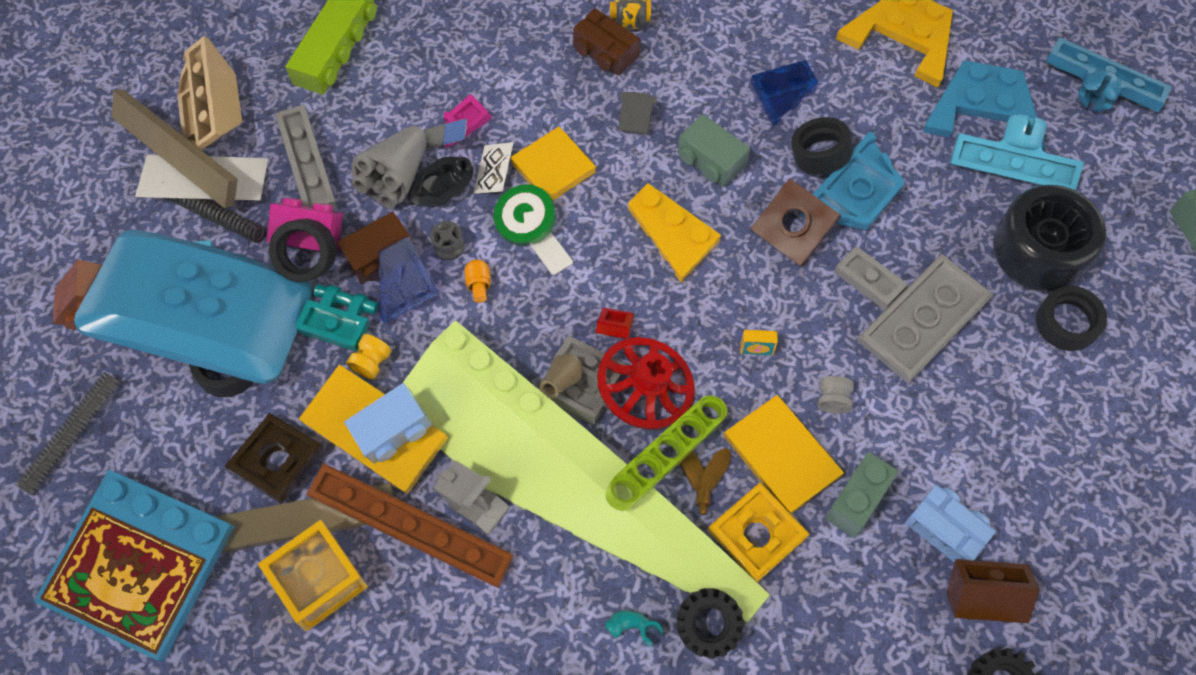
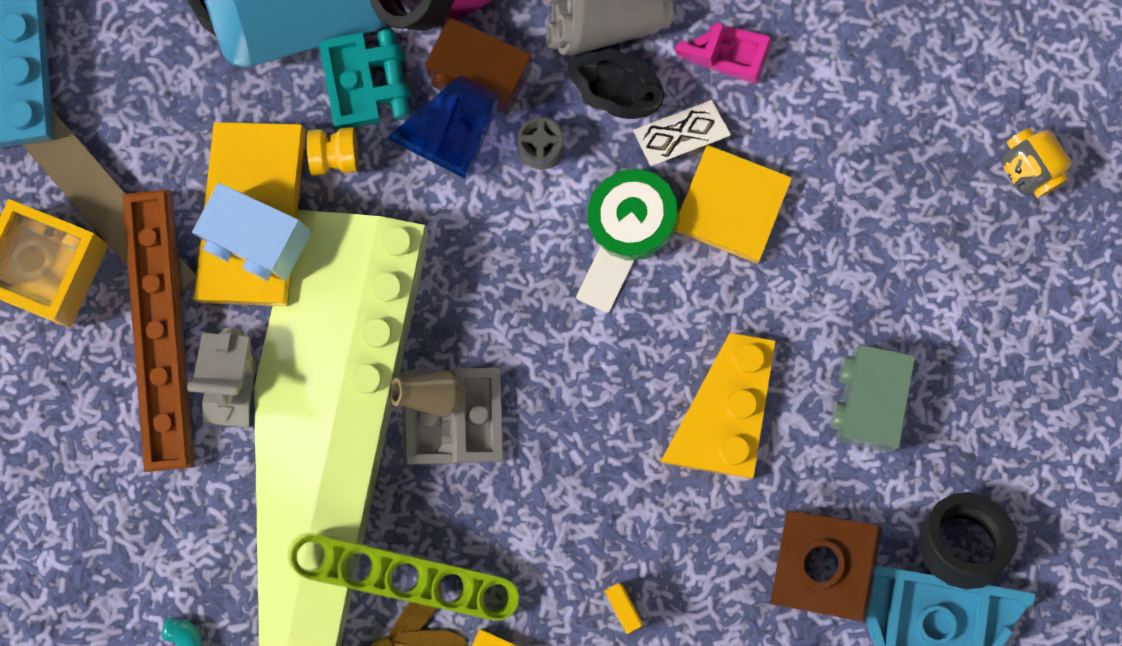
camera: 60 degrees right, 15 degrees up
(267, 438) = (138, 103): dark brown piece -> none
(446, 133) = (687, 44): sticker -> none
(477, 279) = (512, 211): light orange cylinder -> none
(606, 42) = (961, 160): reddish brown brick -> none
(615, 323) = (547, 414): red tile -> none
(636, 112) = (876, 263): dark grey tile -> none
(649, 377) = (489, 498): red wheel -> none
(783, 88) = (1041, 439): clear blue wing -> none

